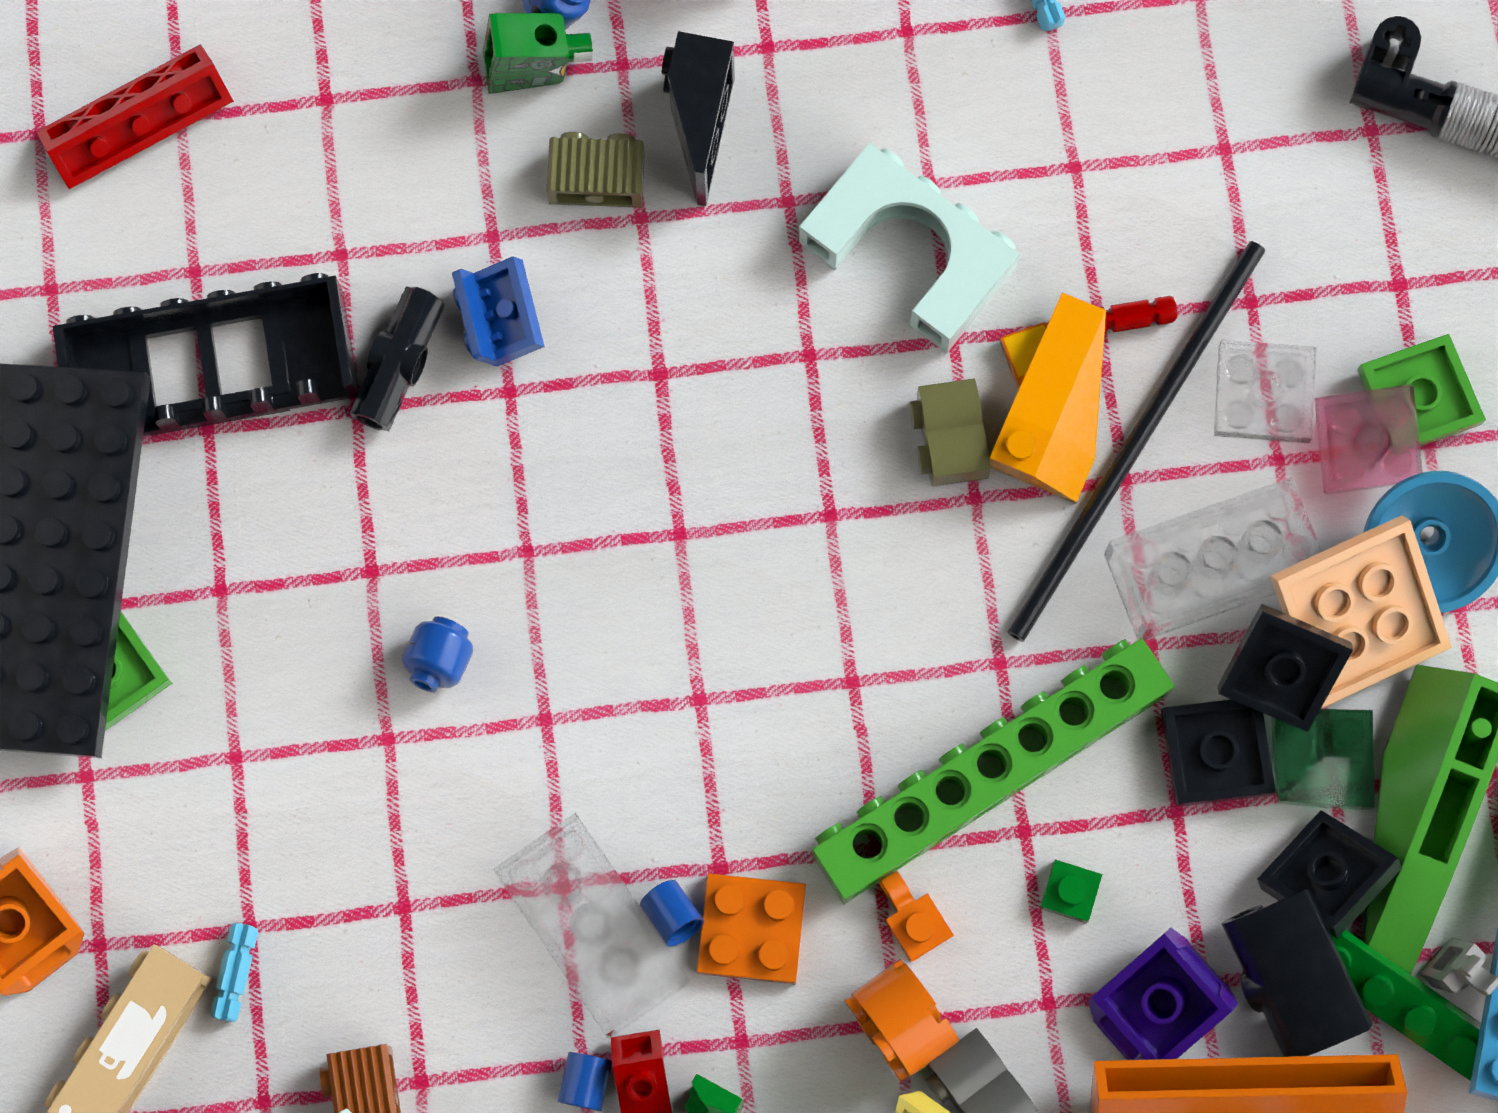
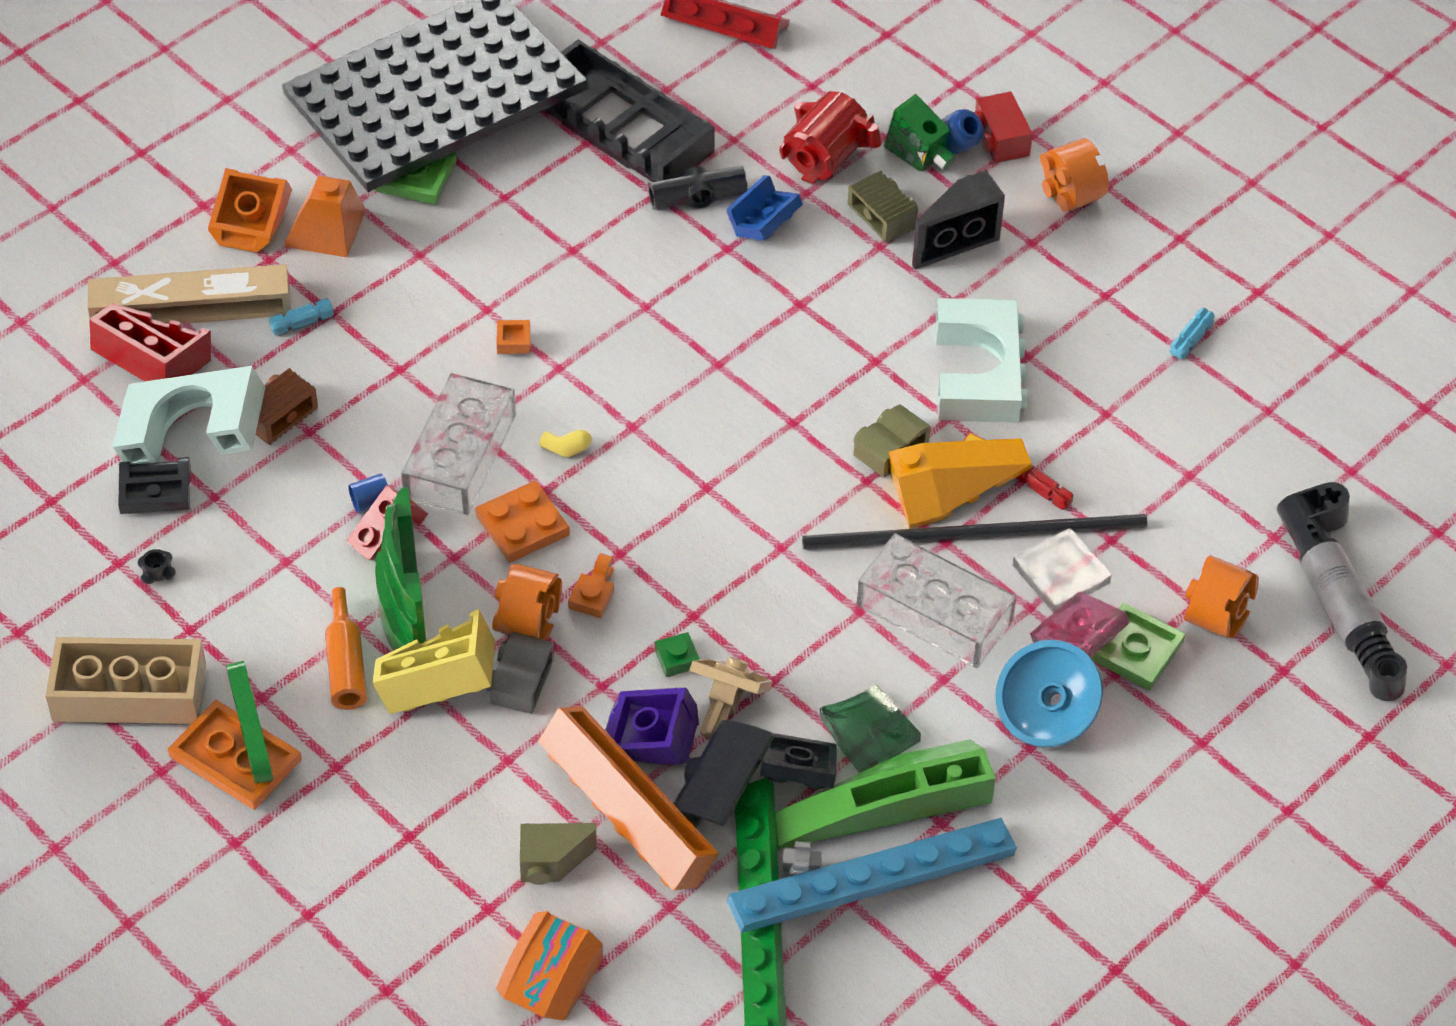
camera: 50 degrees right, 25 degrees down
(106, 842) = (327, 218): none -> orange slope
(437, 654) = (550, 293): blue head -> none
(446, 152) = (827, 135): none -> red container
(466, 743) = (513, 336): none -> orange plate
(671, 913) = (497, 474): blue beam -> none
(679, 798) = (566, 445): none -> light yellow arm
(1144, 686) = (715, 571): bright green brick -> none
(1169, 870) = (729, 683): none -> tan piece
(1217, 752) = (824, 671): black plate -> none
(1284, 667) = (898, 655): black plate -> none
(1373, 596) = (970, 679): light nougat plate -> none
(1440, 261) = (1221, 597): none -> orange brick

